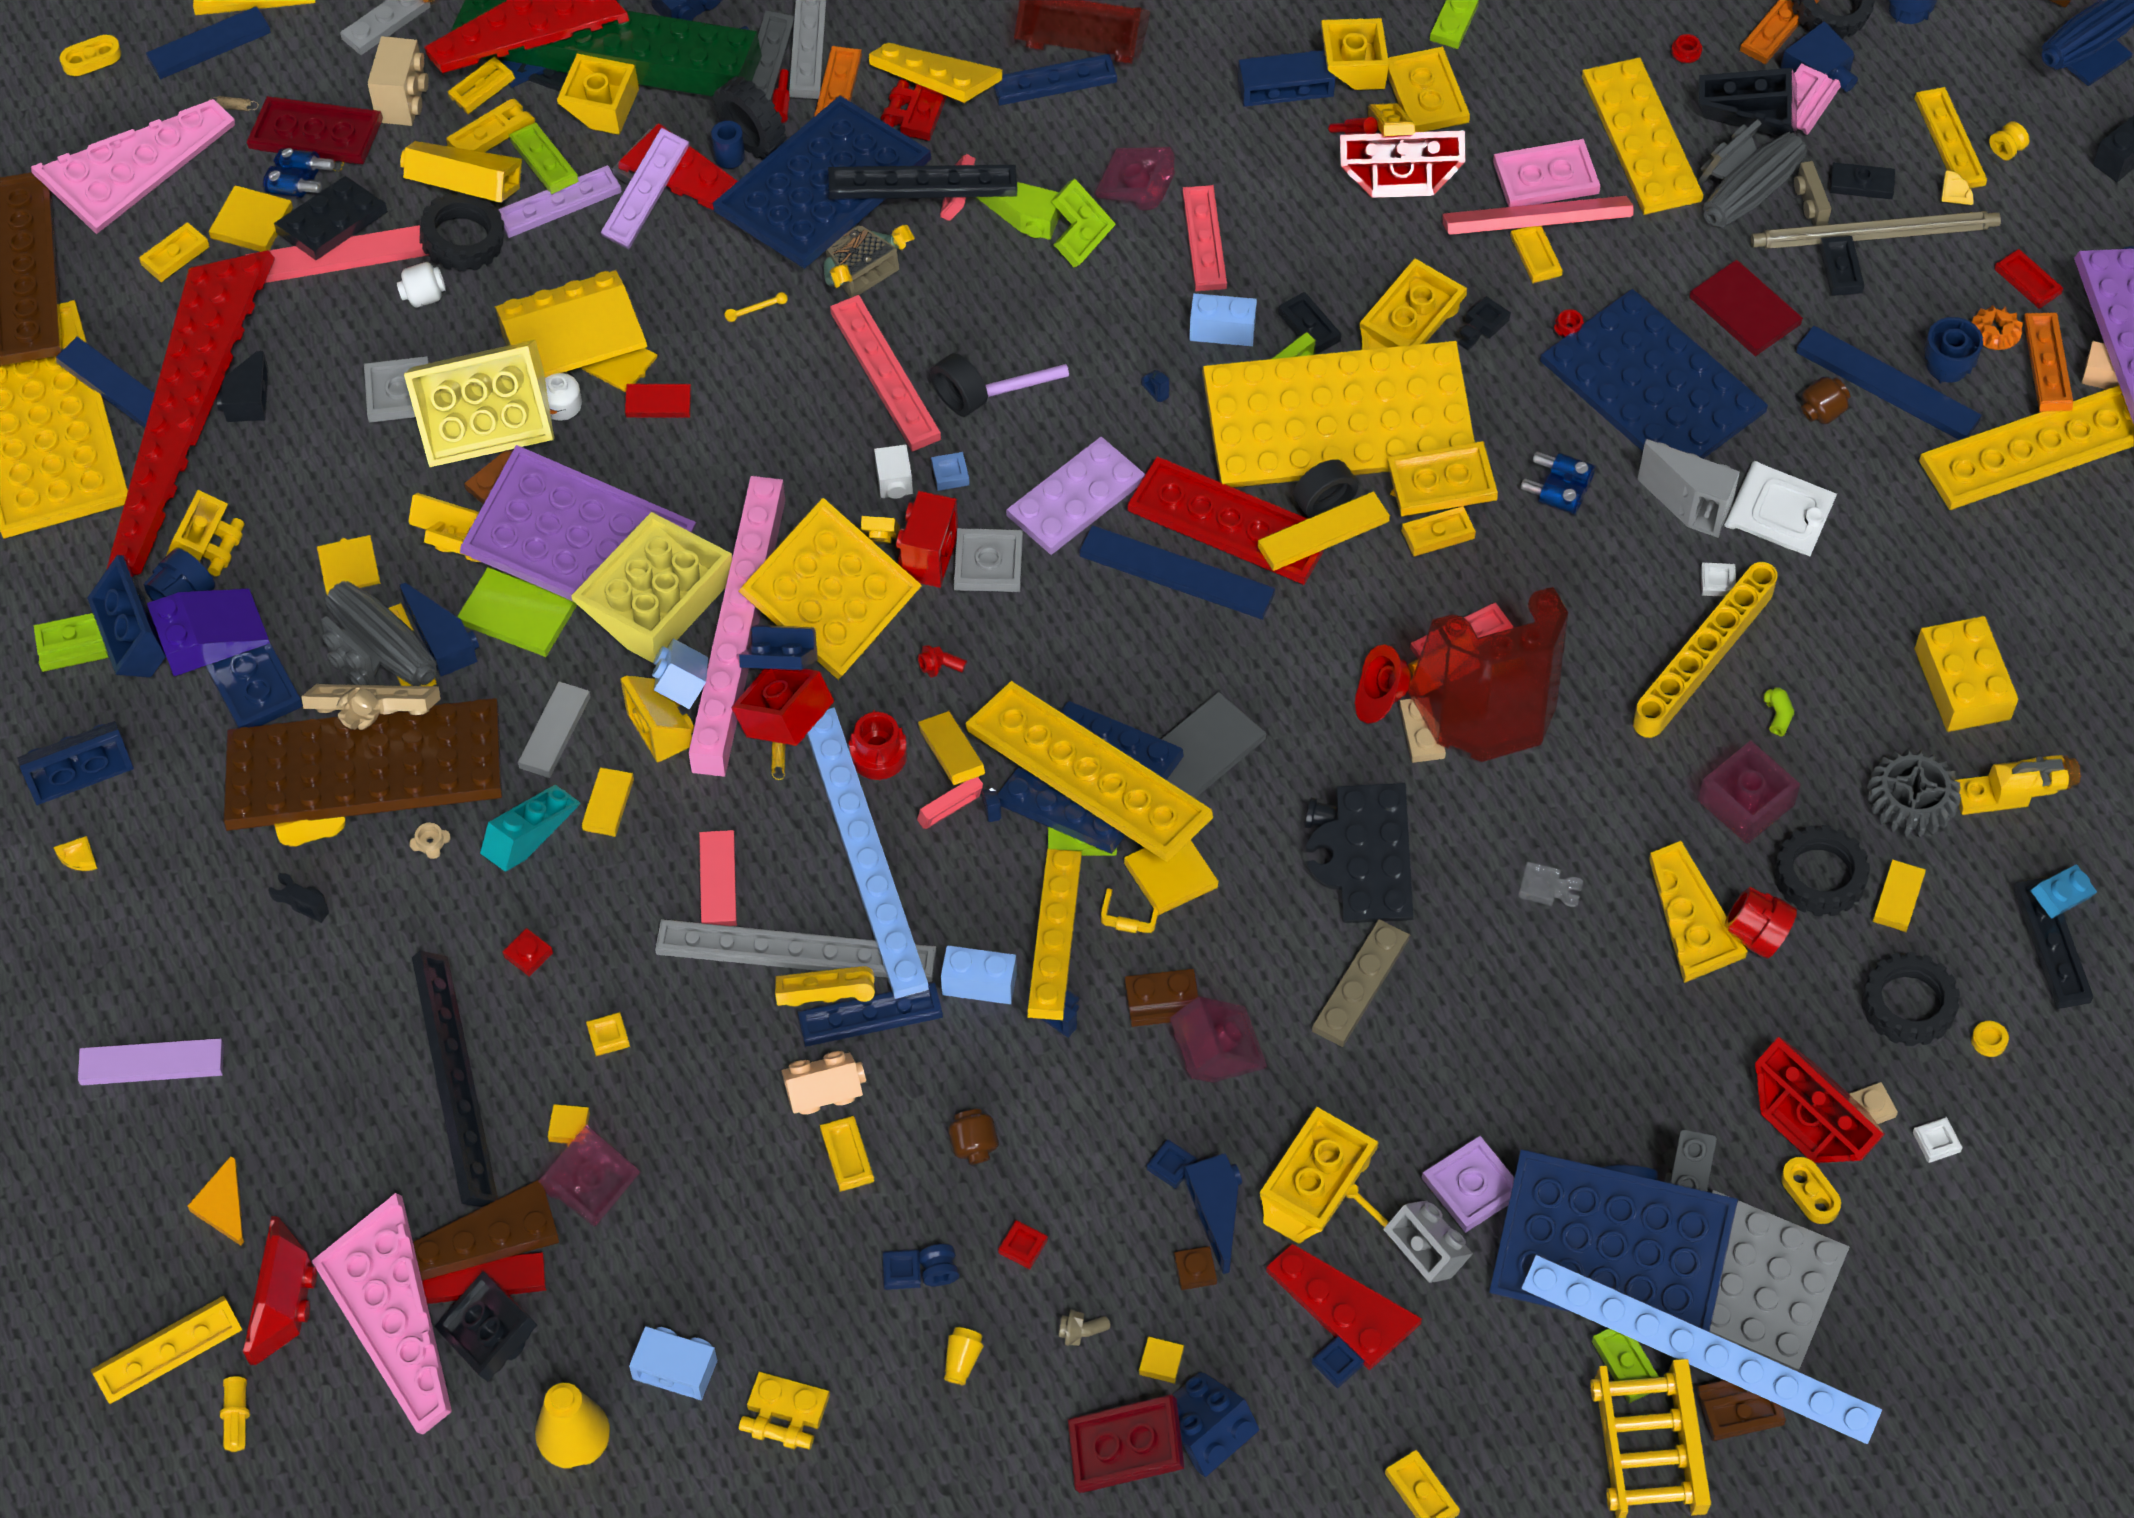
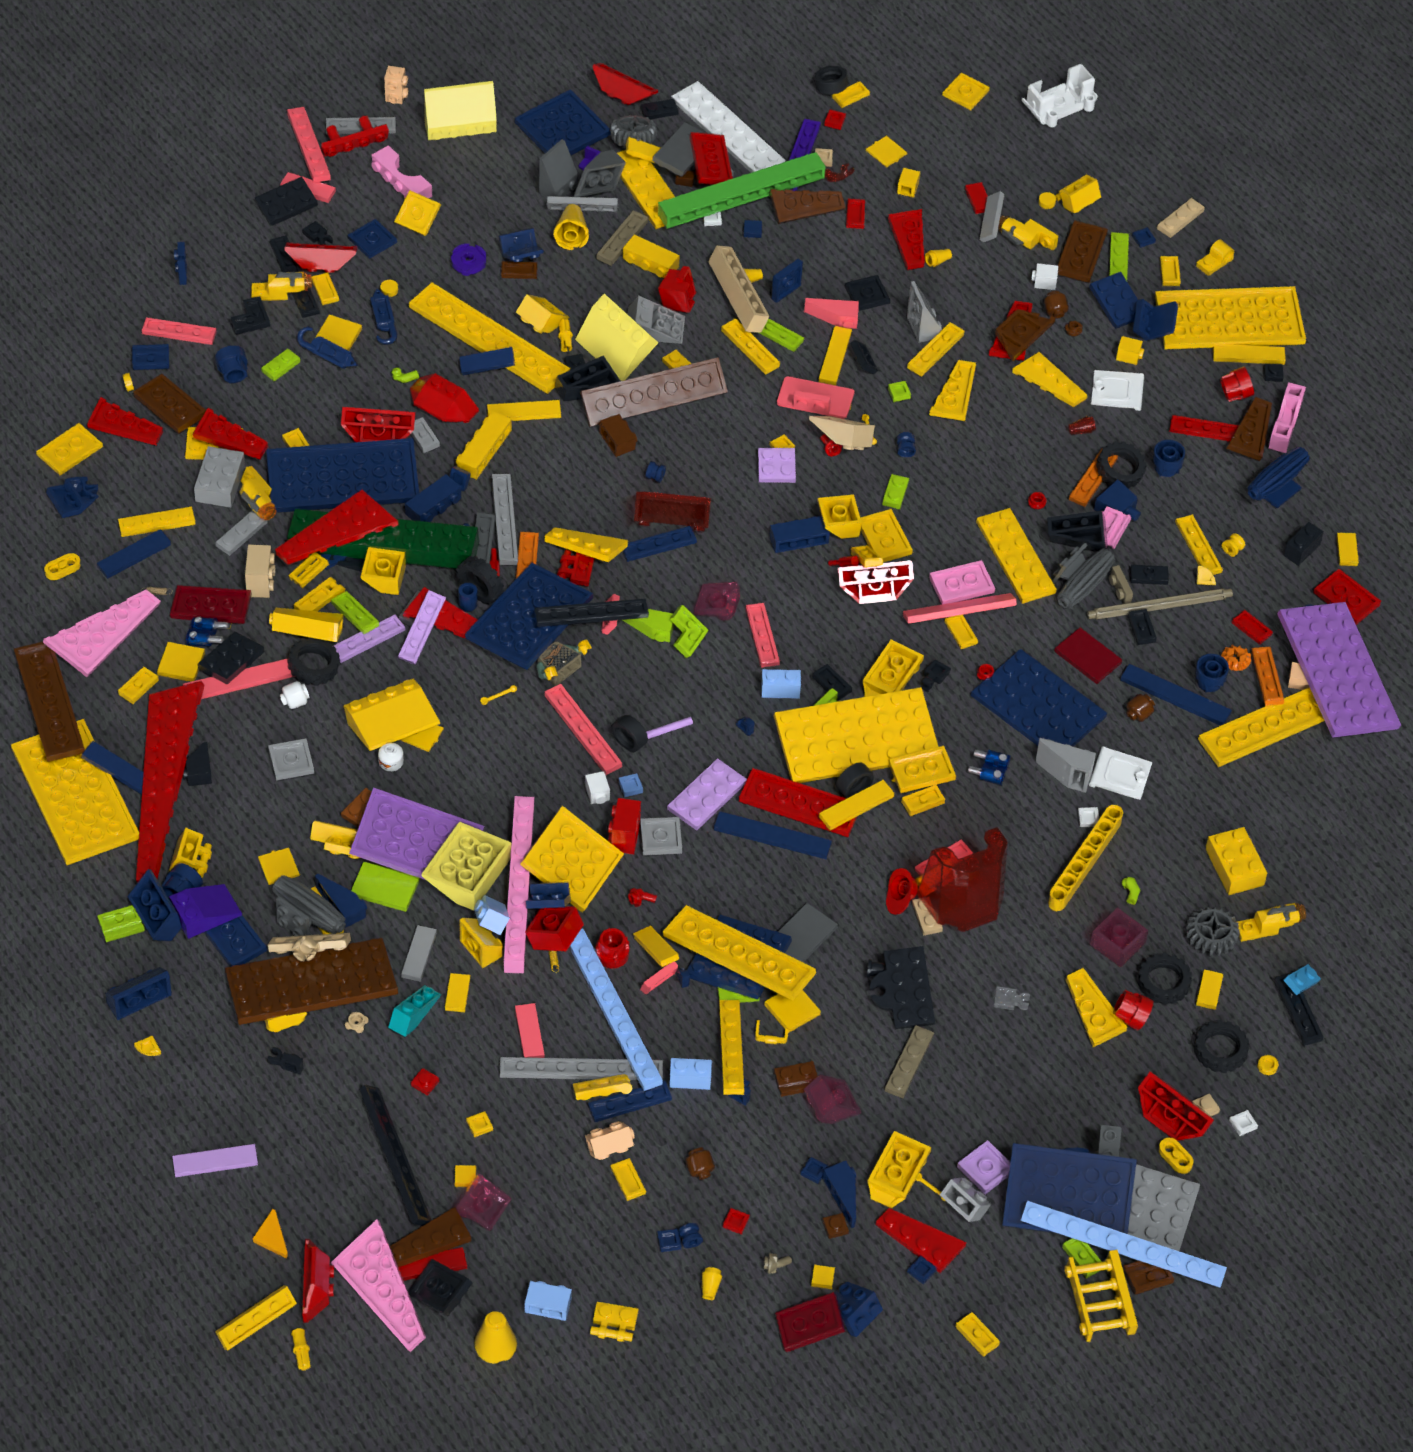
camera: 10 degrees left, 5 degrees down
(481, 403) = (346, 764): light yellow slope -> none
(658, 400) = (449, 755): red tile -> none
(880, 529) = (596, 822): yellow plate -> none

